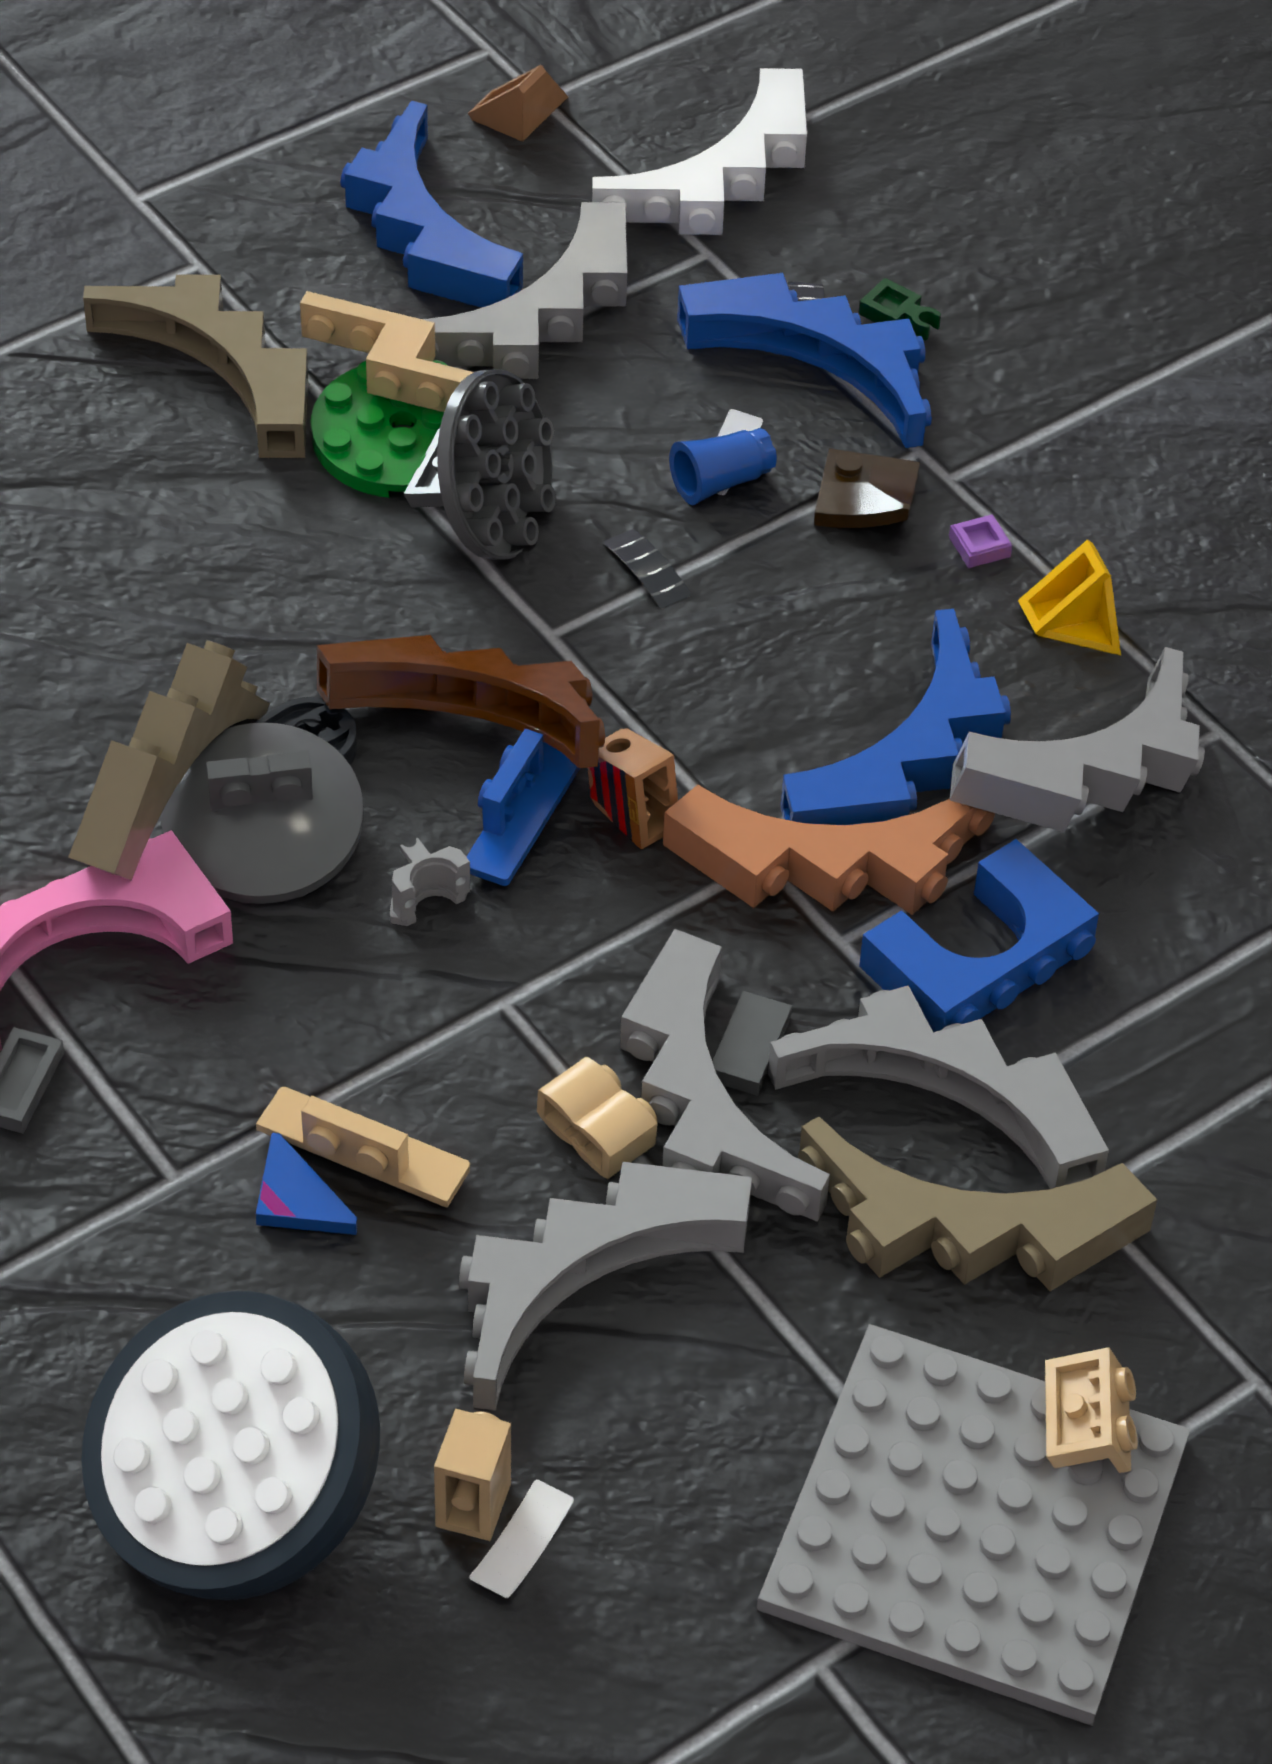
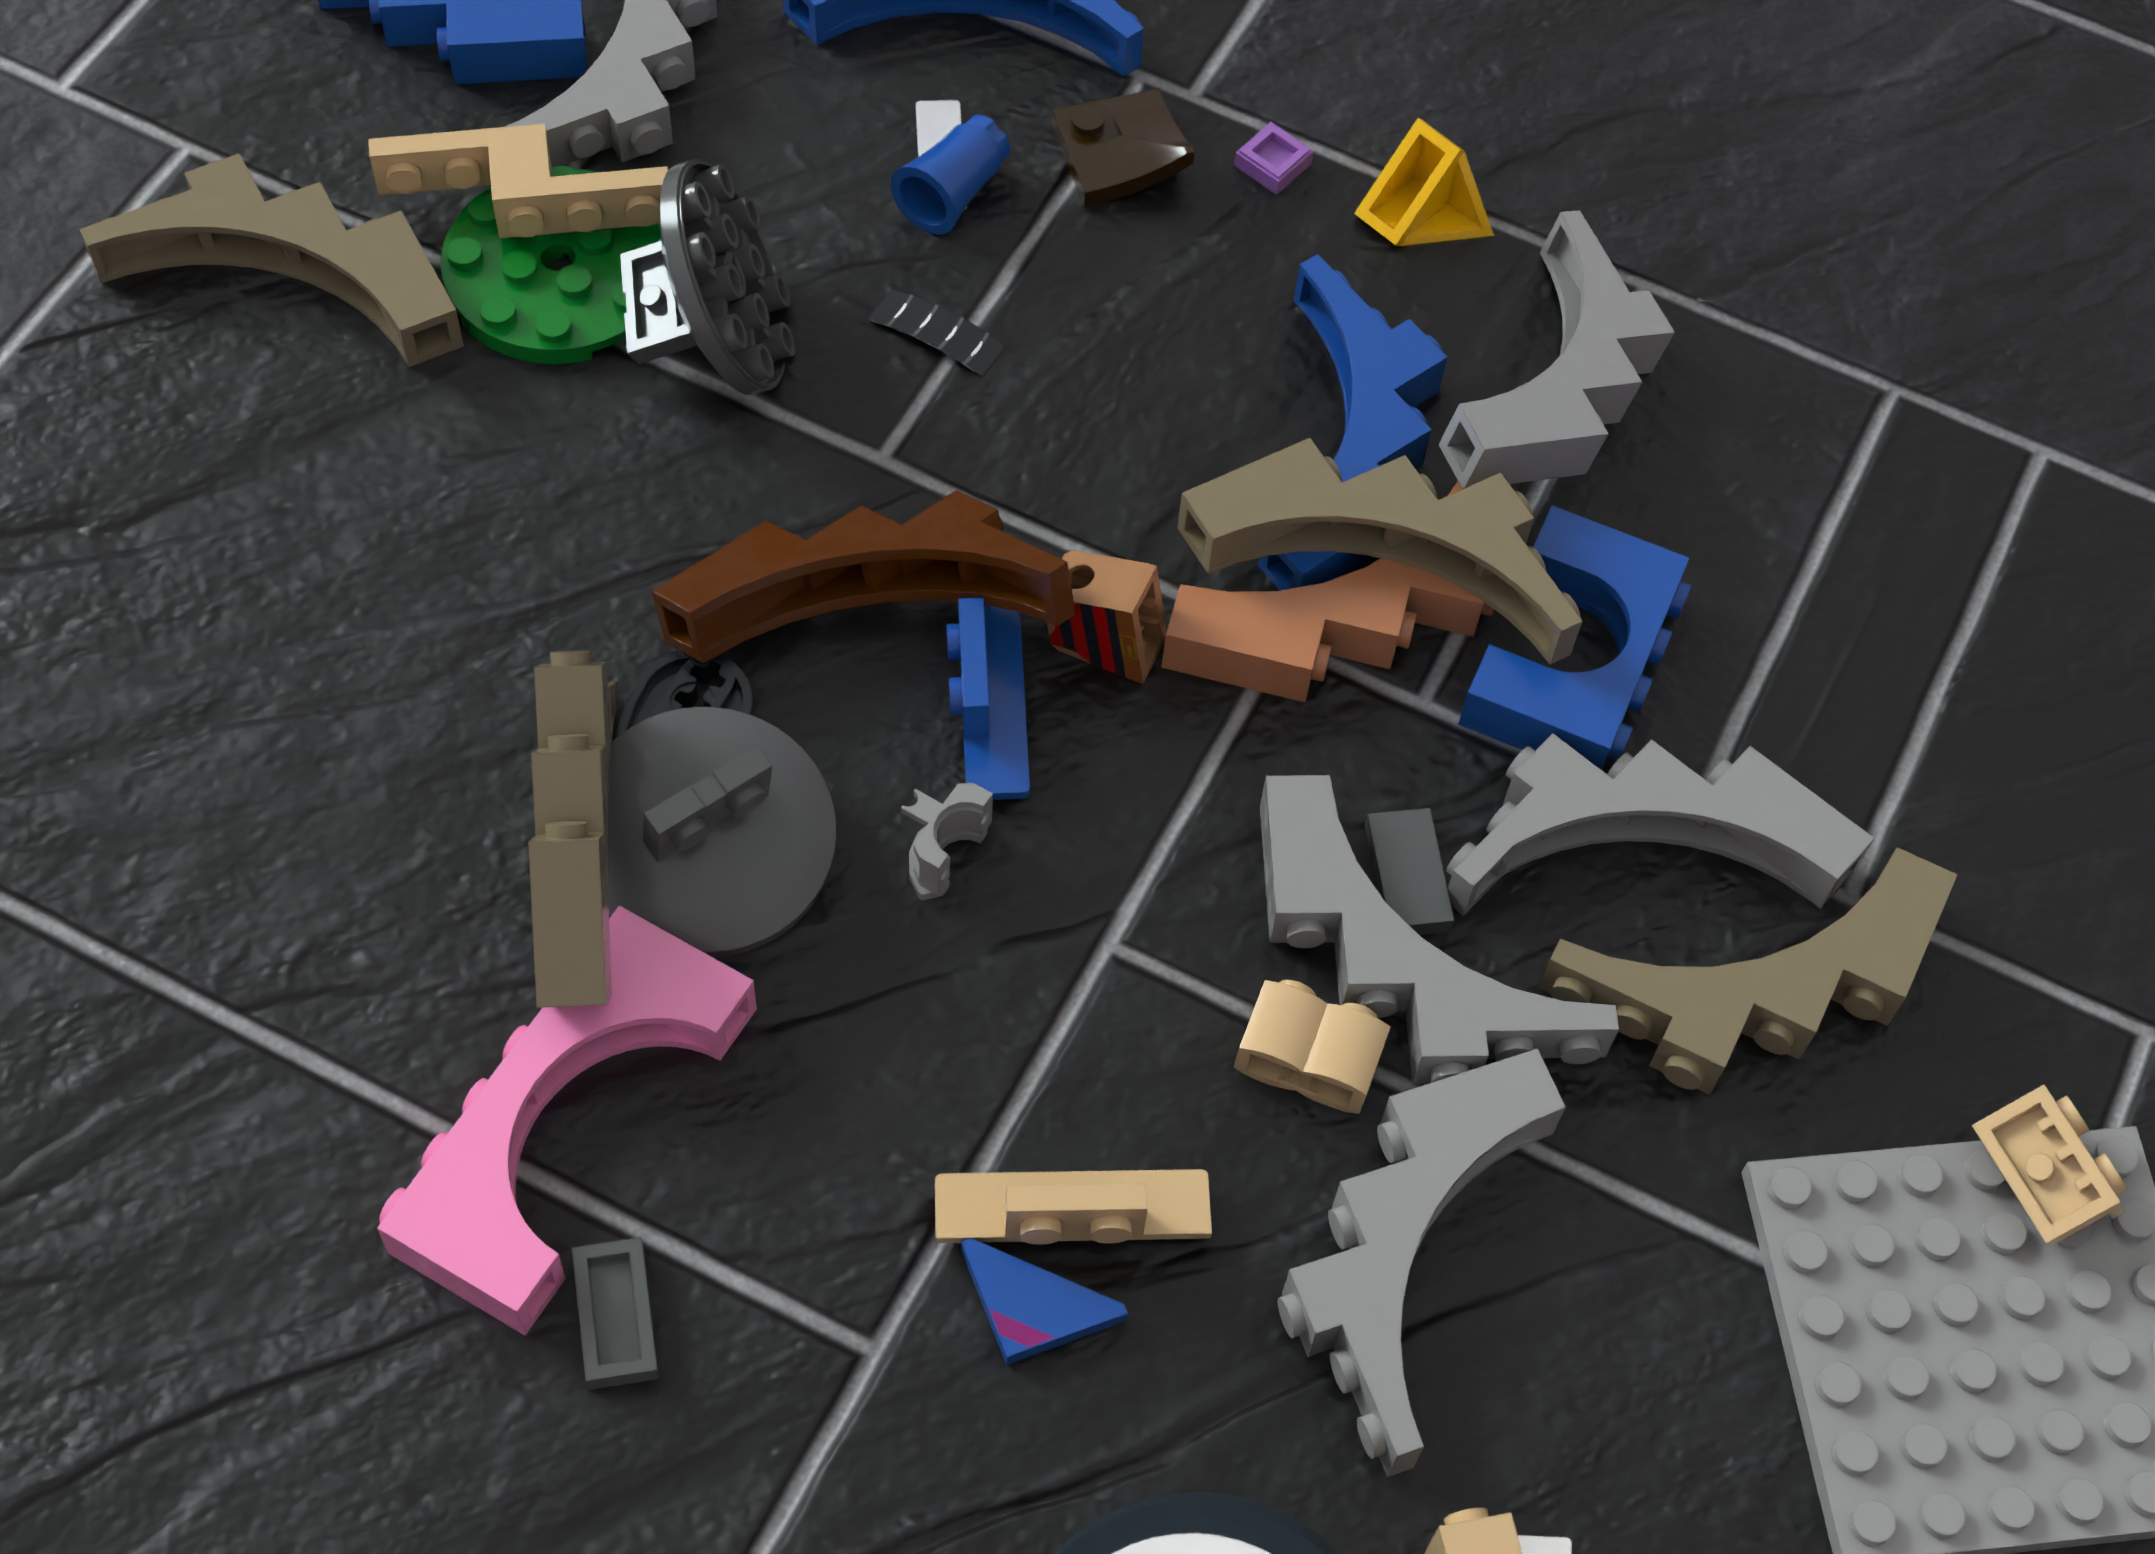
camera: 30 degrees left, 10 degrees up
(818, 762) = (1388, 513): none -> dark tan arch

